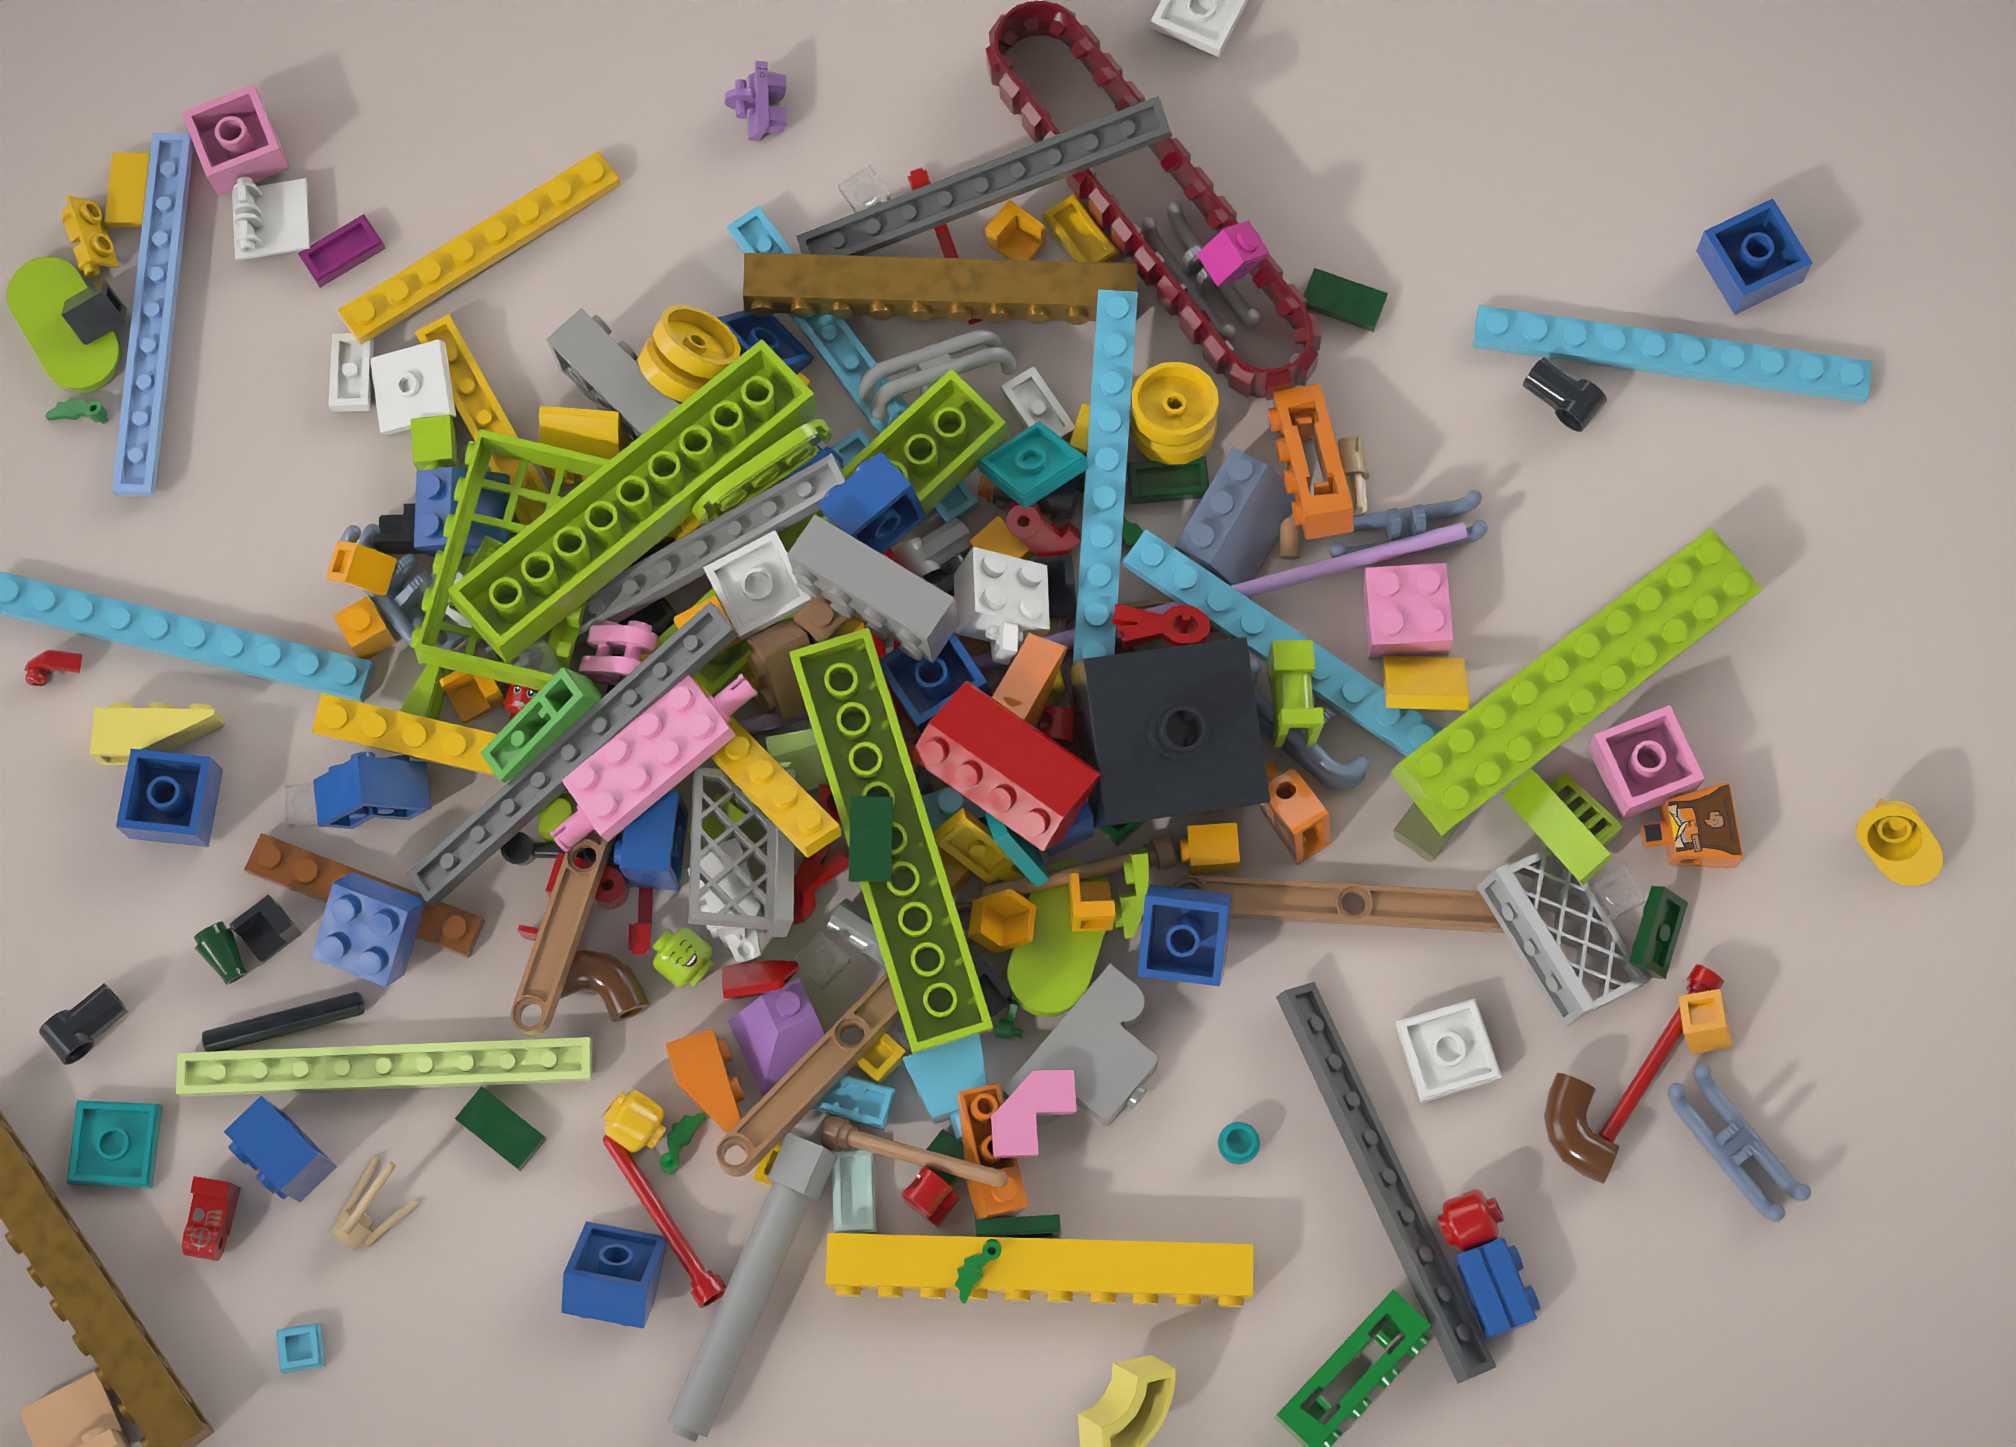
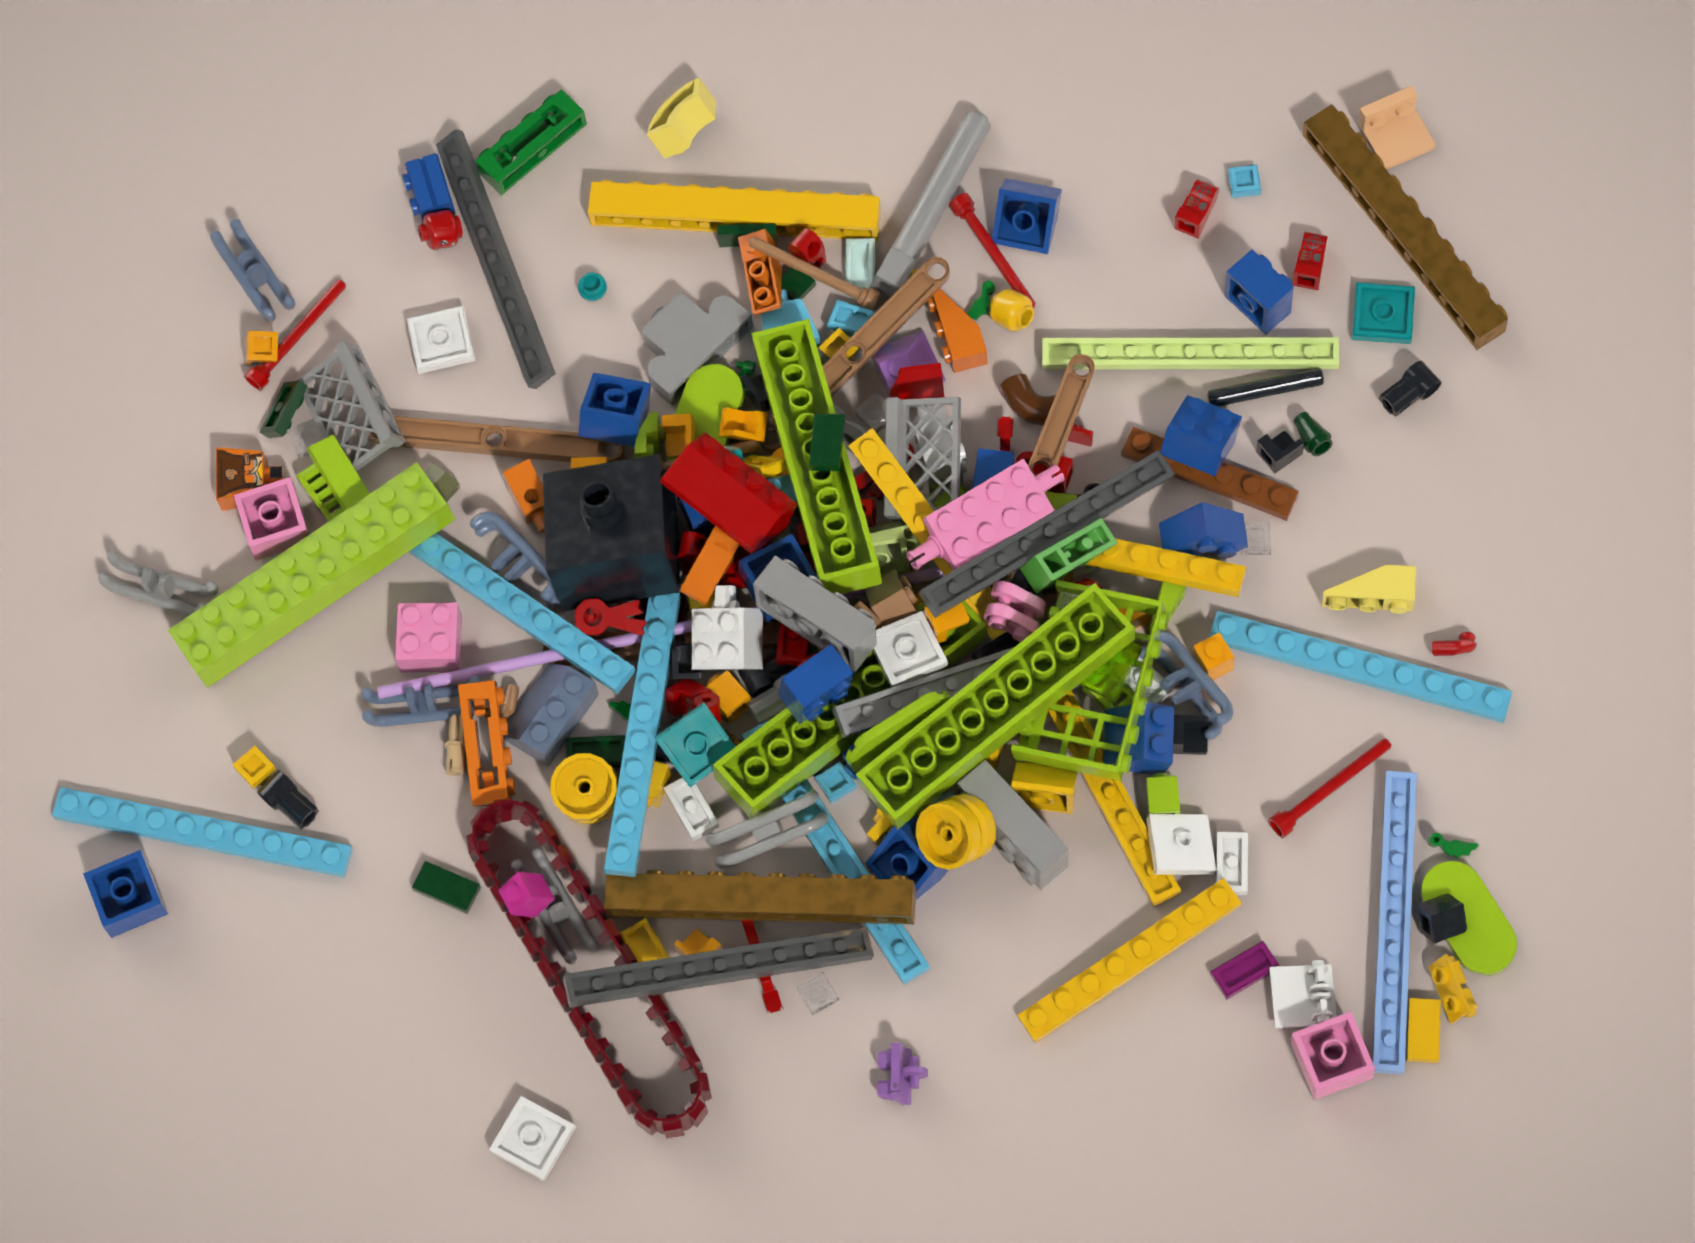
camera: 175 degrees left, 5 degrees down
(169, 797) = (1354, 535): blue brick -> none
(282, 428) = (1284, 822): none -> red piece
(353, 1224) = (1206, 252): tan plant -> none
(361, 567) = (1213, 688): light orange panel -> none
(368, 1297) = (1196, 208): none -> red leg
(500, 1128) = (1107, 313): dark green tile -> none
(682, 957) = (977, 417): lime head -> none
(972, 1269) = (778, 199): green piece -> none
(1015, 1120) = (741, 283): bright pink tile -> none
(1290, 675) = (518, 571): lime piece -> none
(1425, 683) = (421, 577): yellow tile -> none
(1569, 1130) = (365, 285): reddish brown cylinder -> none
(1614, 426) = (254, 767): none -> yellow tile
(1787, 672) = (157, 586): none -> light grey piece
(1900, 843) = (104, 463): yellow piece -> none

